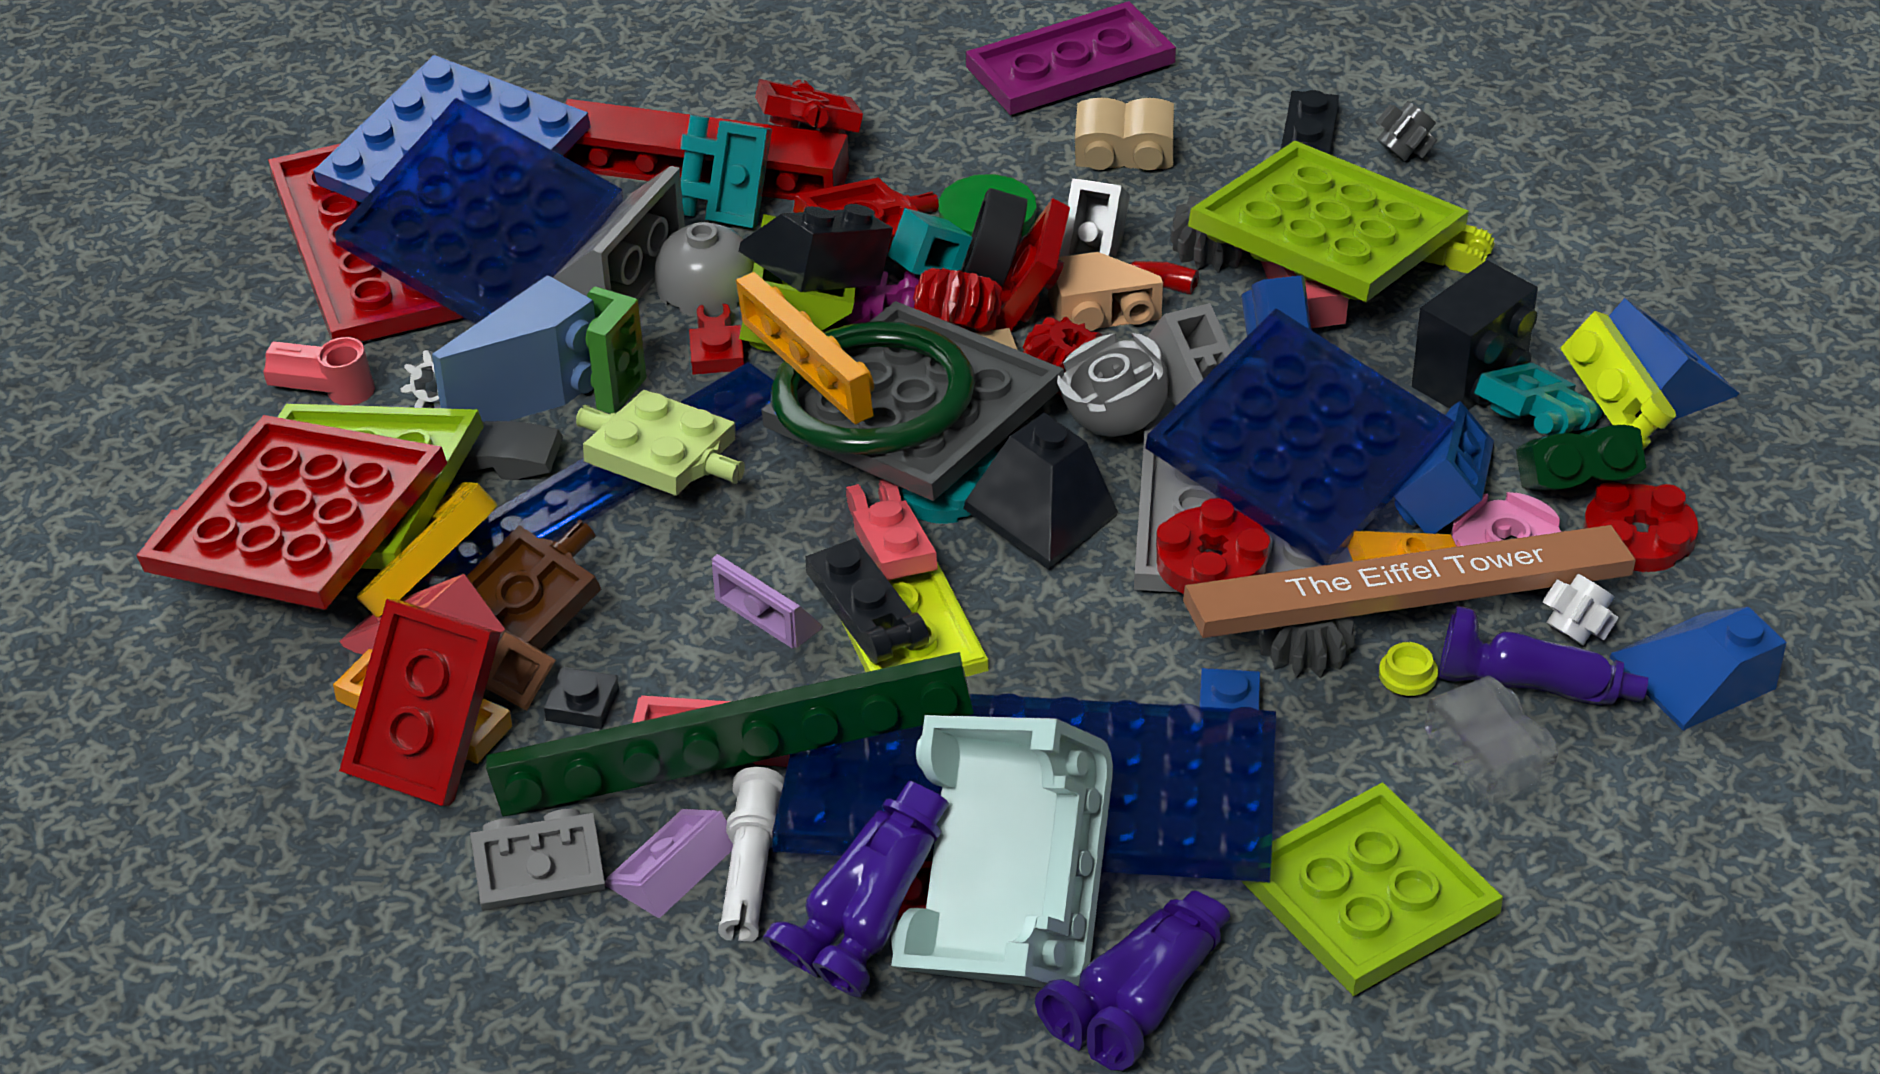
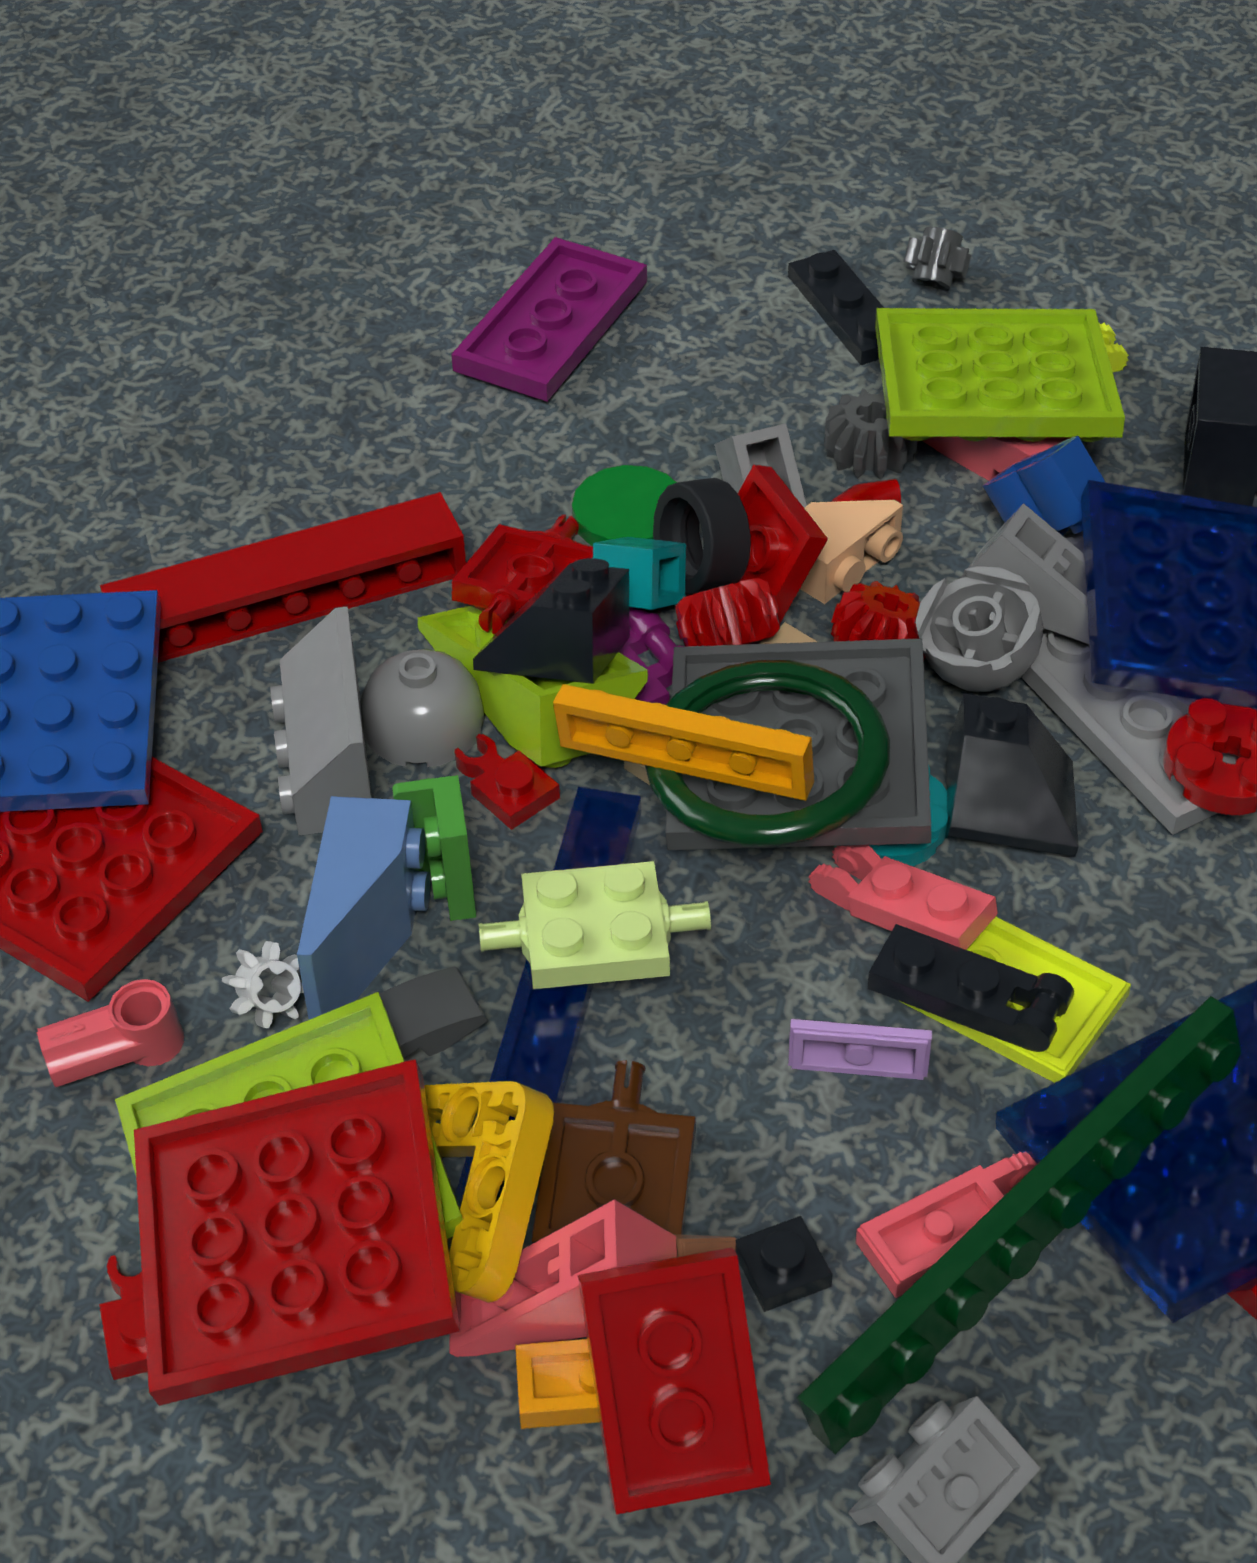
camera: 35 degrees left, 5 degrees up
(477, 213) = (158, 768): clear blue plate -> none
(672, 860) = (1061, 1393): lavender slope -> none
(736, 175) = (367, 581): teal plate -> none
(751, 834) = (1124, 1312): white pin -> none
(801, 102) = (361, 480): red plate -> none
(1124, 134) = (688, 372): tan brick -> none

